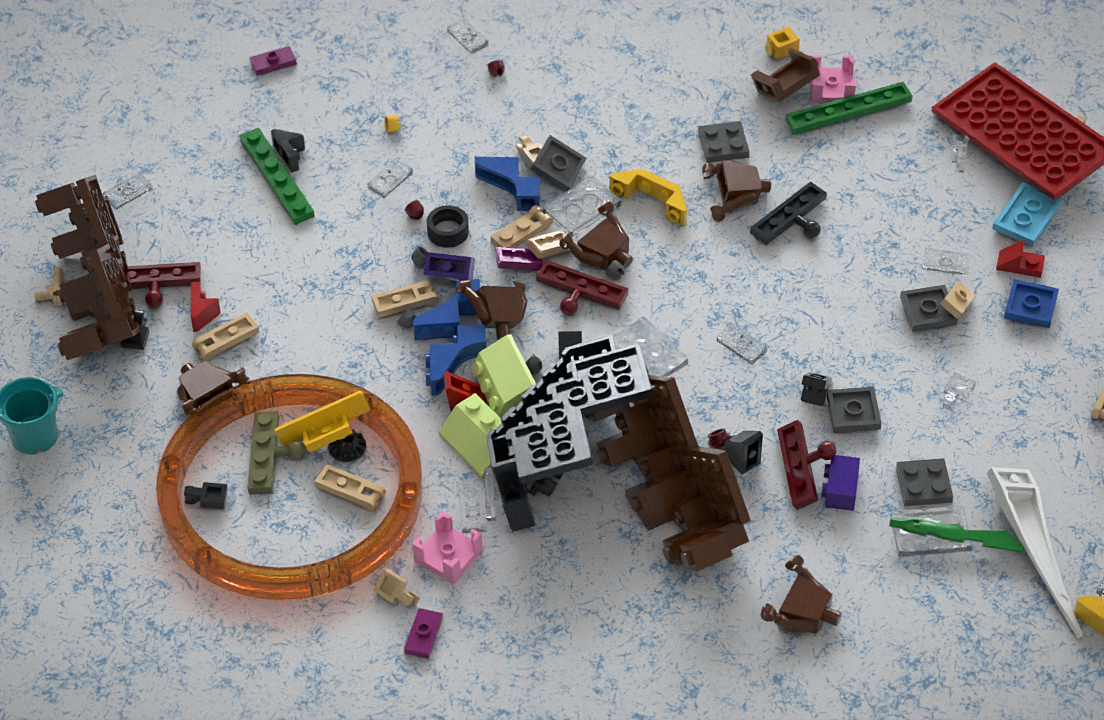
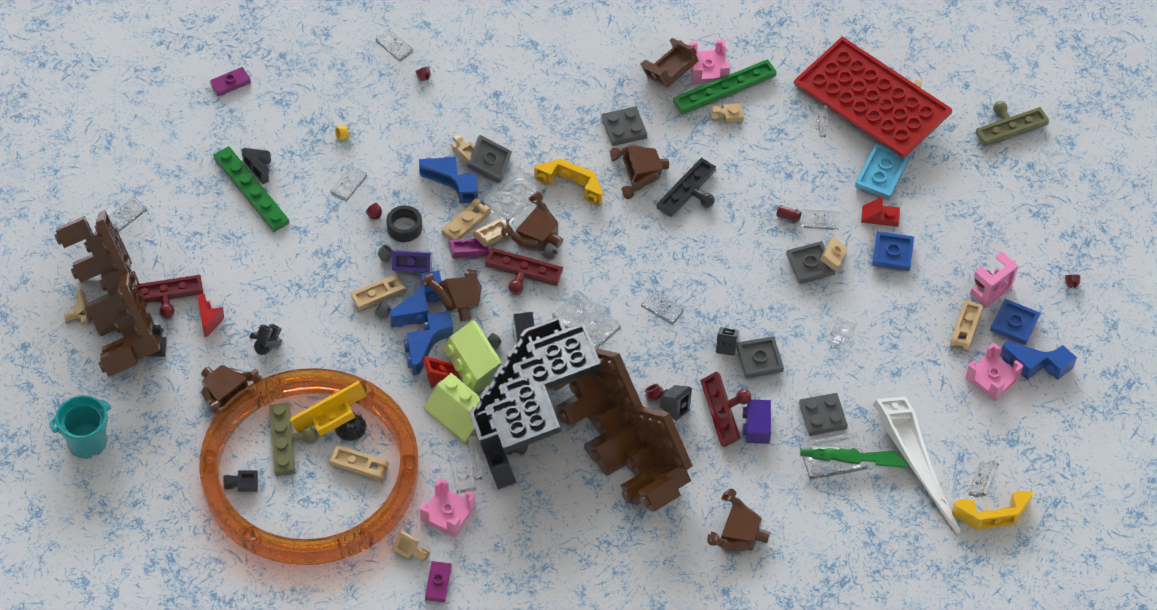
camera: 10 degrees left, 5 degrees up
(225, 336) = (232, 340): tan plate -> none
(263, 335) = (266, 337): none -> black hips
(780, 42) = (662, 31): yellow brick -> none
(851, 136) = (729, 112): none -> tan plate
(904, 250) = (788, 213): none -> dark red pin

